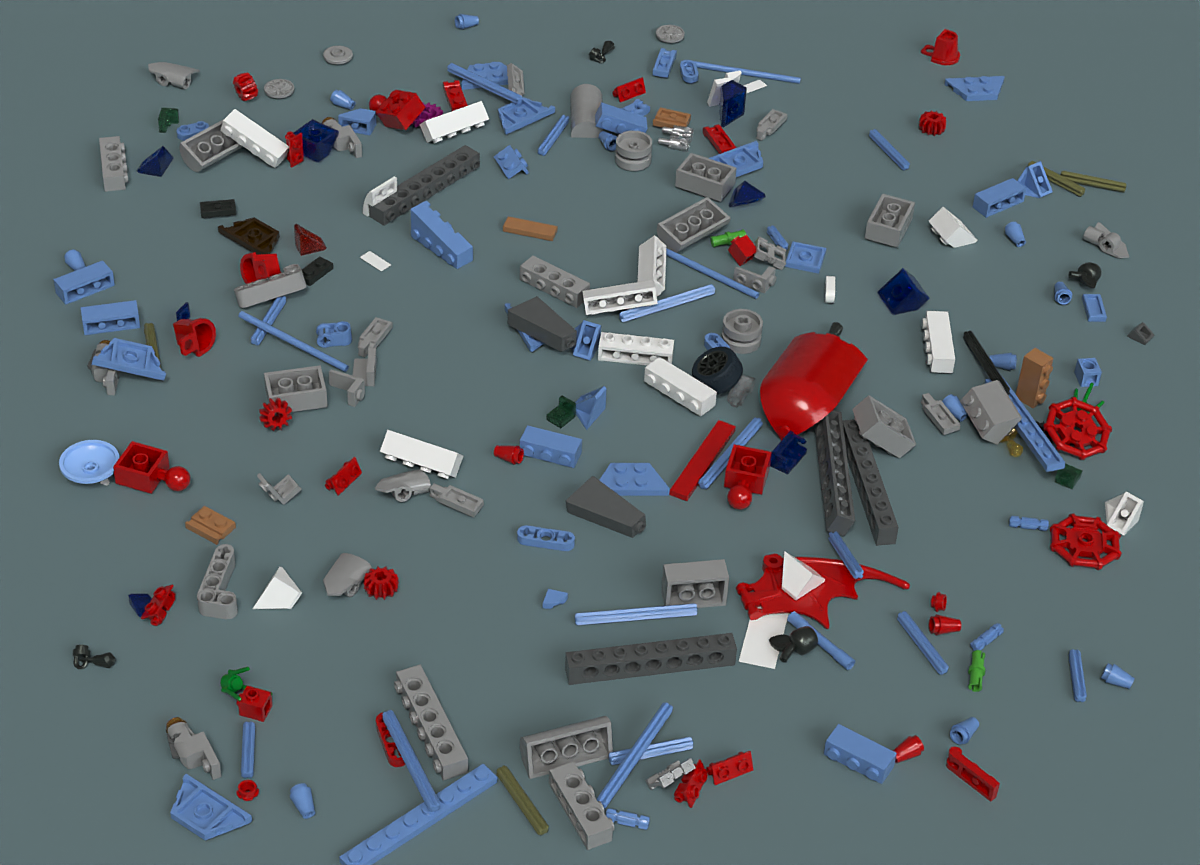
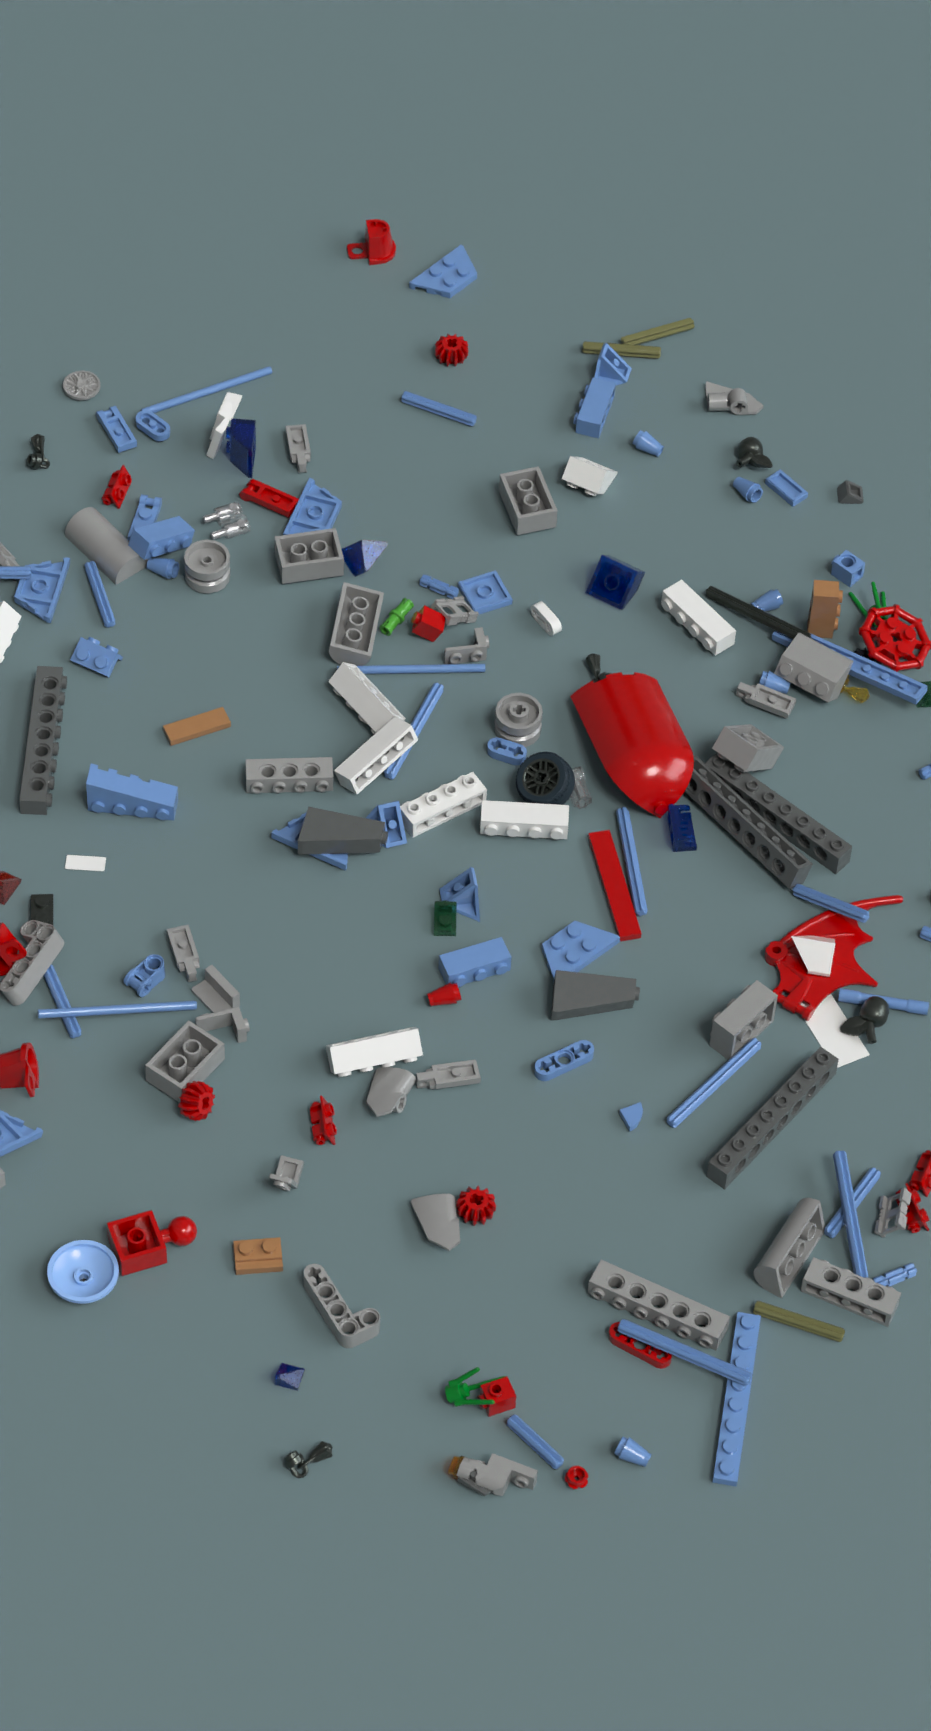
camera: 40 degrees left, 10 degrees up
(162, 598) = (308, 1365): red hinge -> none
(206, 811) = (563, 1520): medium blue wing -> none
(279, 593) = (396, 1278): white slope -> none
(379, 194) = (21, 784): white slope -> none
(669, 118) = (198, 500): medium nougat plate -> none
(746, 475) = (673, 873): red brick -> none

